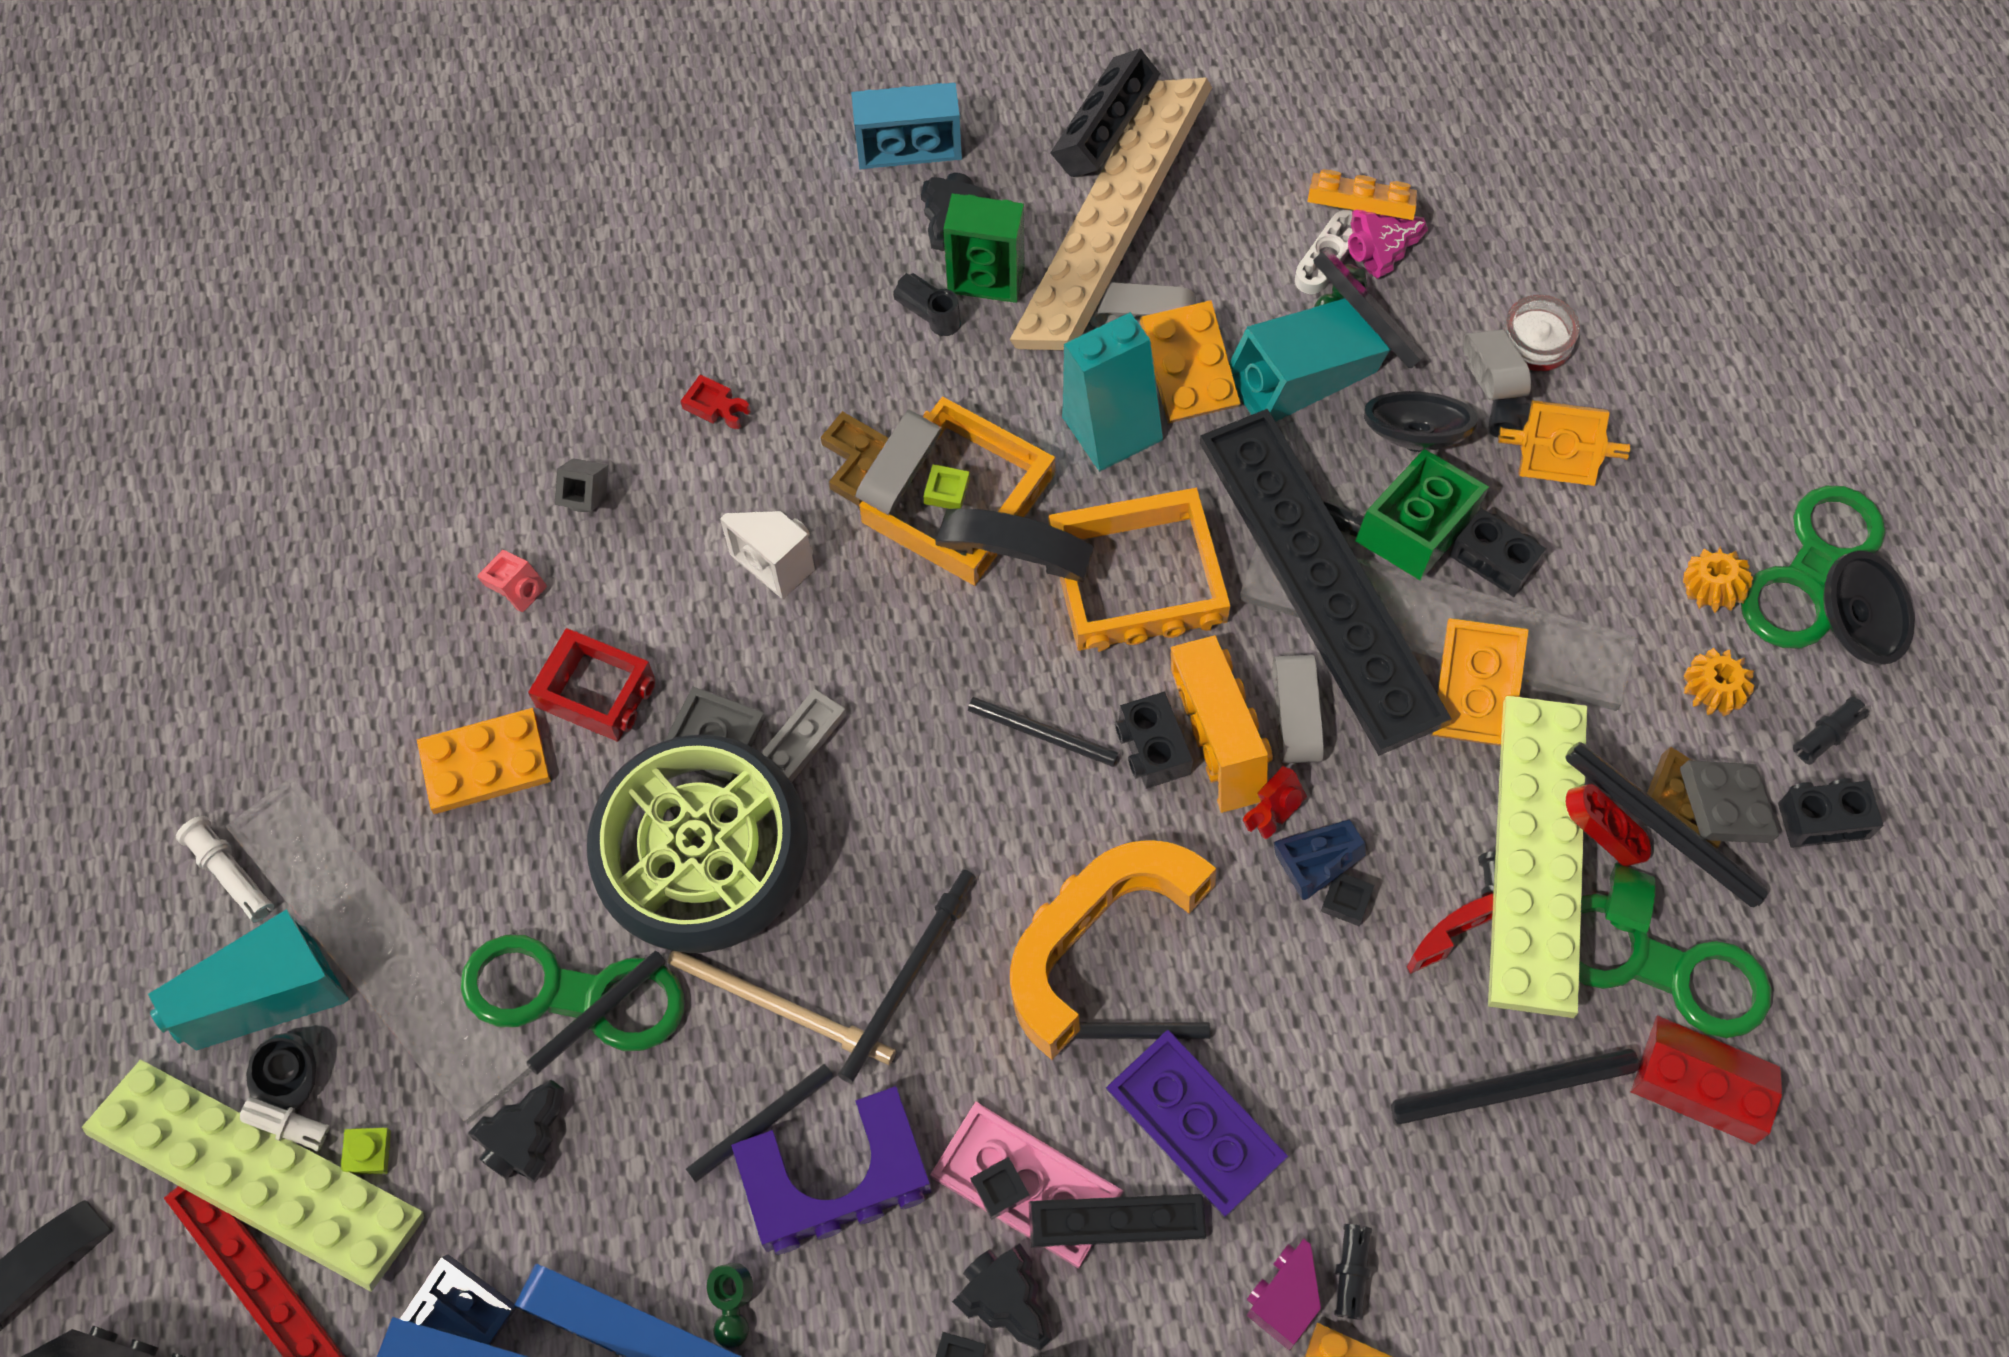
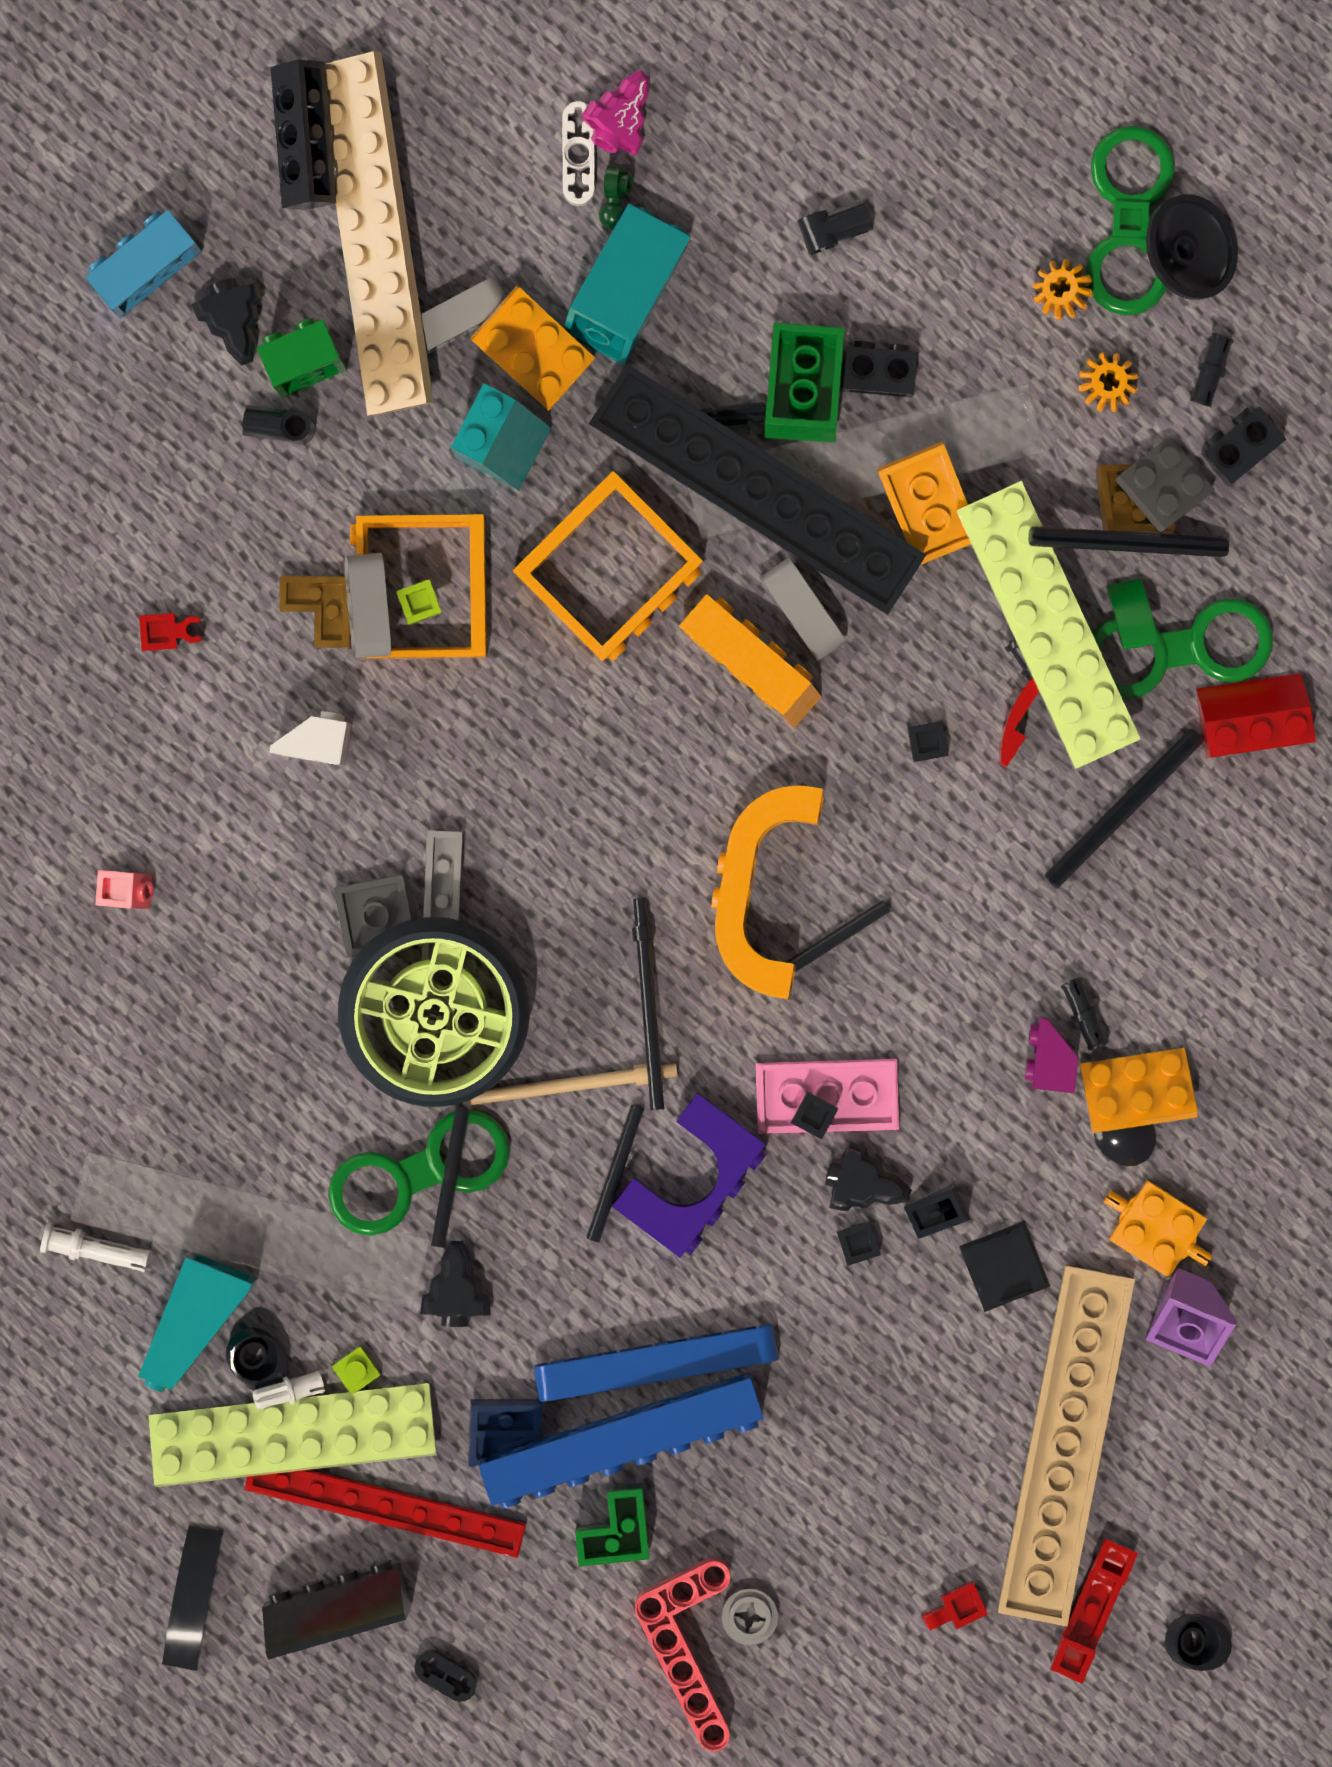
camera: 30 degrees left, 25 degrees up
(483, 761) = (216, 1044): light orange plate -> none
(560, 666) = (220, 940): red window -> none
(581, 485) = (121, 778): dark grey brick -> none
(731, 1327) = (692, 1318): dark green plate -> none
(1017, 538) = (504, 616): black slope -> none
(1043, 731) = (620, 749): black bar -> none
(1117, 1220) = (906, 1083): black tile -> none
(1162, 739) = (716, 699): black brick -> none
(1196, 1123) = (918, 980): dark purple plate -> none
(1278, 801) = (832, 696): red plate -> none
(1319, 855) = (889, 723): dark blue wing -> none
(1363, 194) = (577, 85): light orange plate -> none
(1368, 308) = (651, 207): black tile -> none
(1420, 419) = (752, 288): black dish -> none
(1497, 365) = (785, 196): light grey beam -> none
(1542, 331) = (801, 133): clear piece -> none
(1563, 443) = (879, 238): light orange plate -> none
(1608, 825) = (1078, 578): red beam -> none

